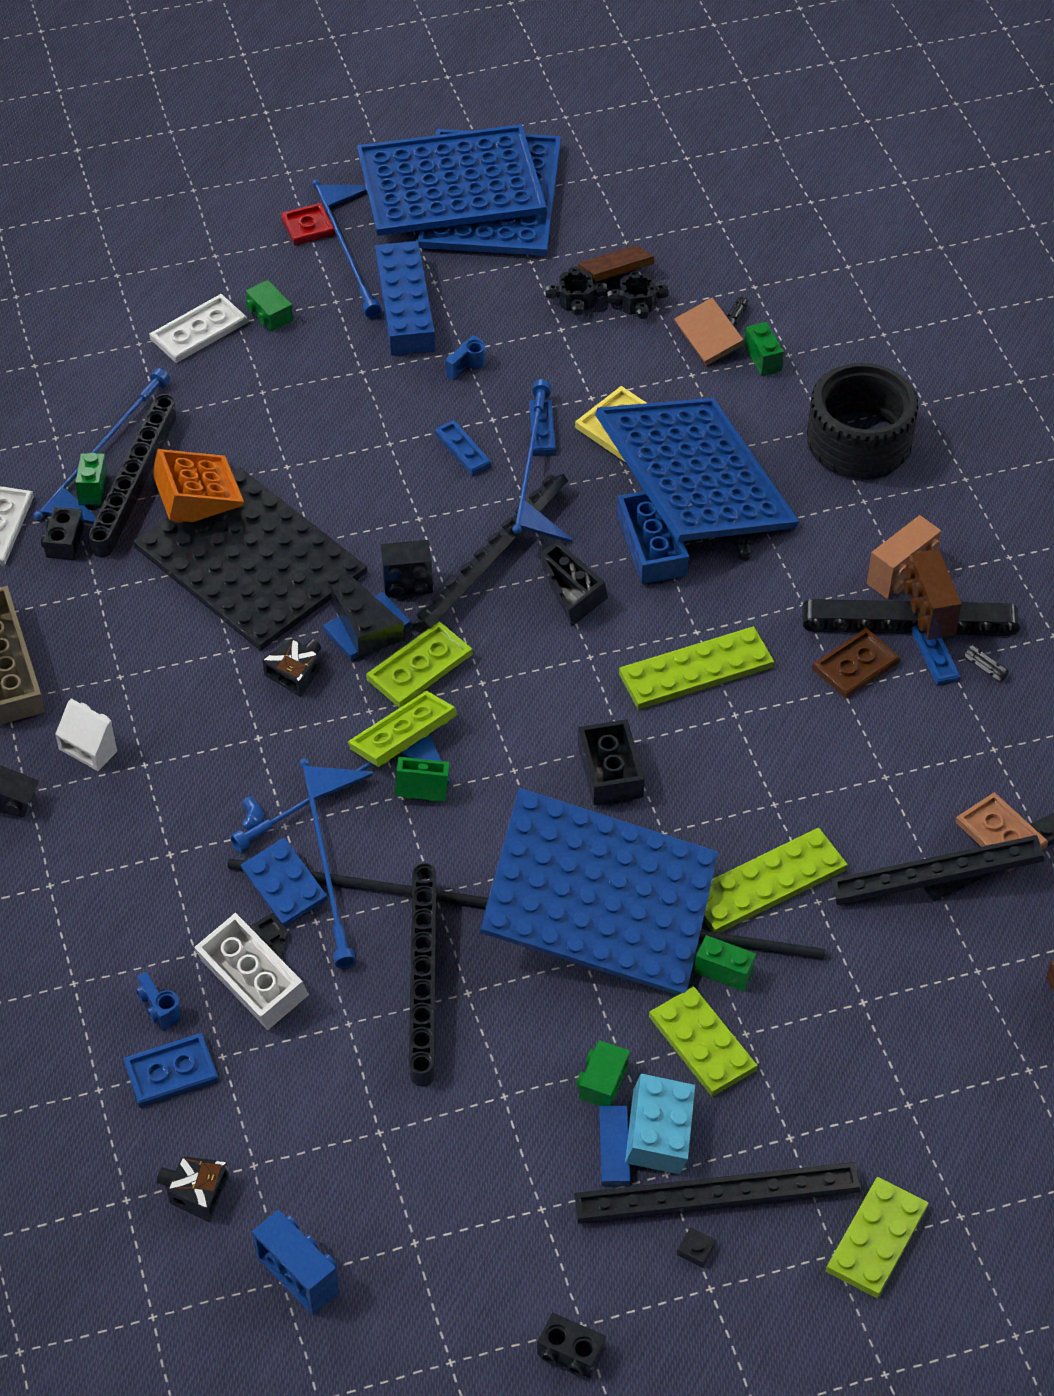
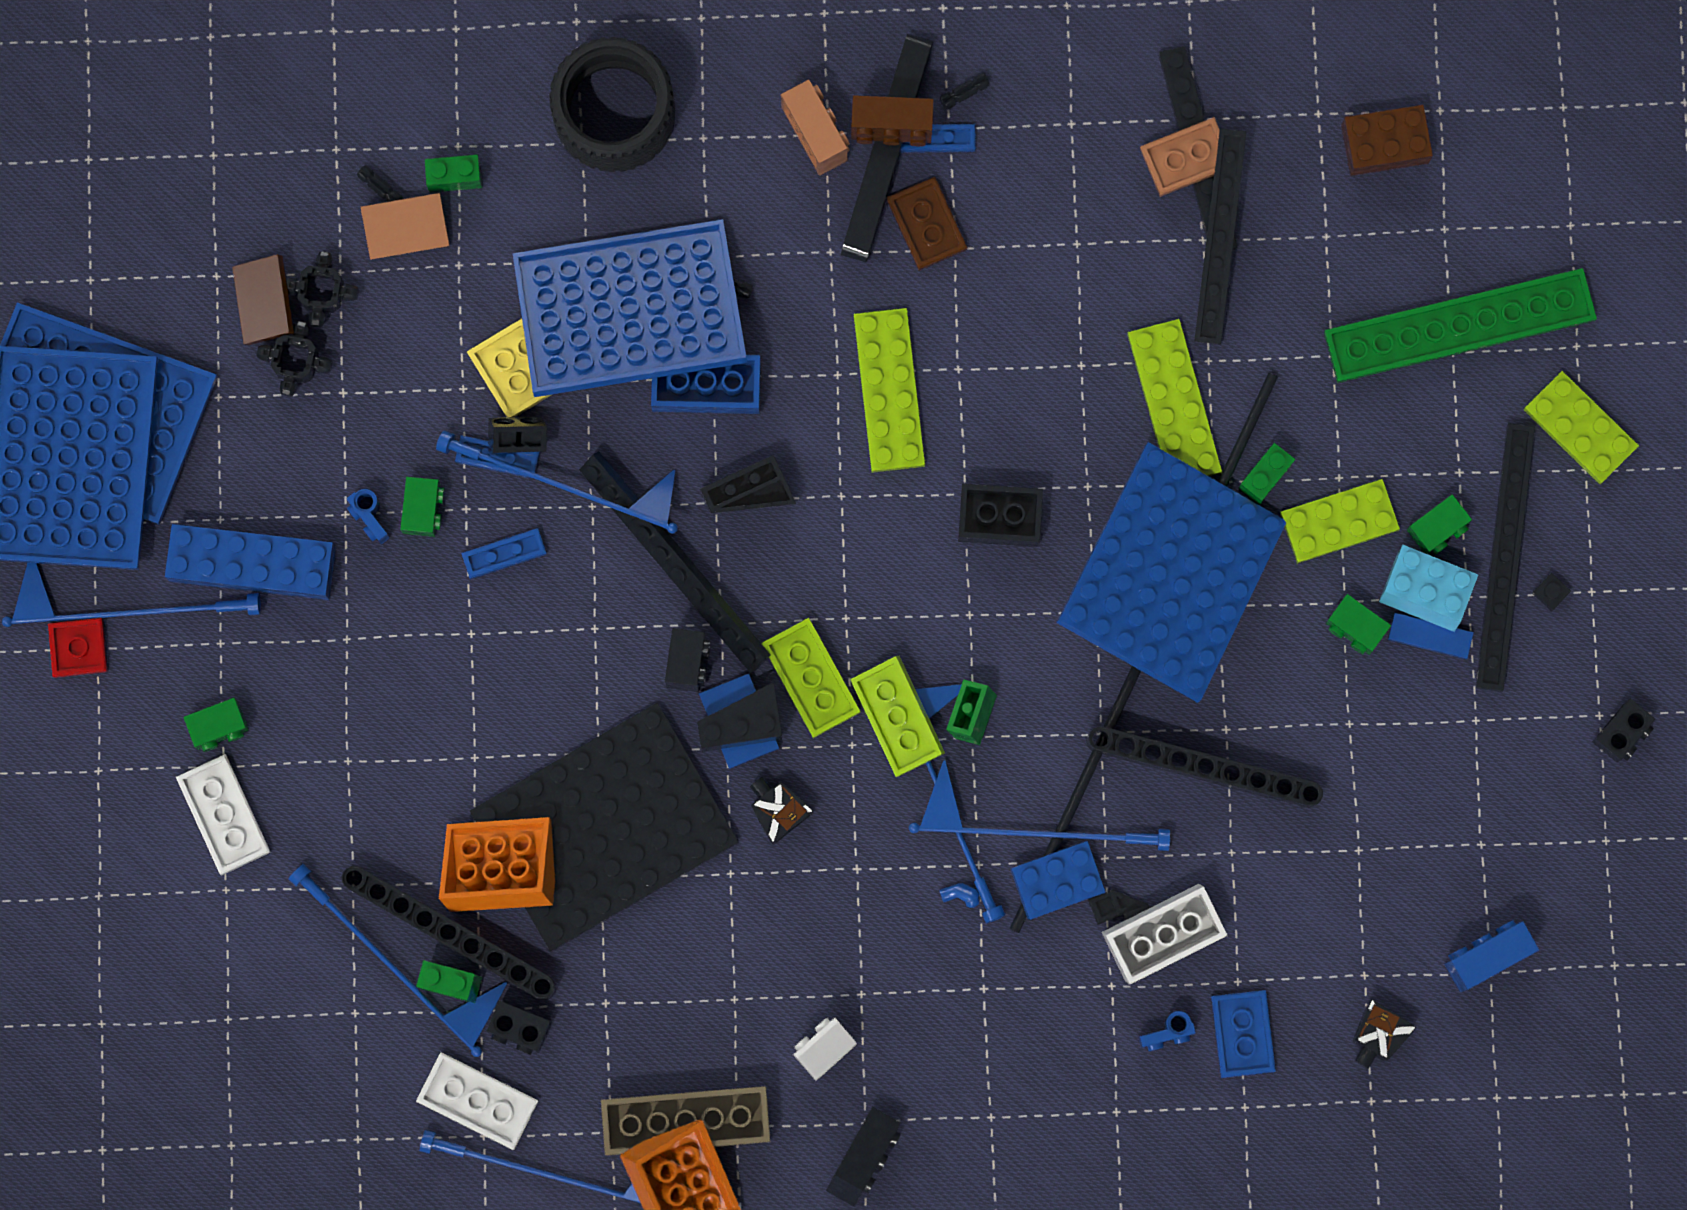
camera: 75 degrees left, 30 degrees up
(483, 386) = (421, 506): none -> green brick
(562, 424) = (517, 434): none -> black brick
(728, 1124) = (1439, 525): none -> green brick
(939, 1103) = (1460, 325): none -> green plate

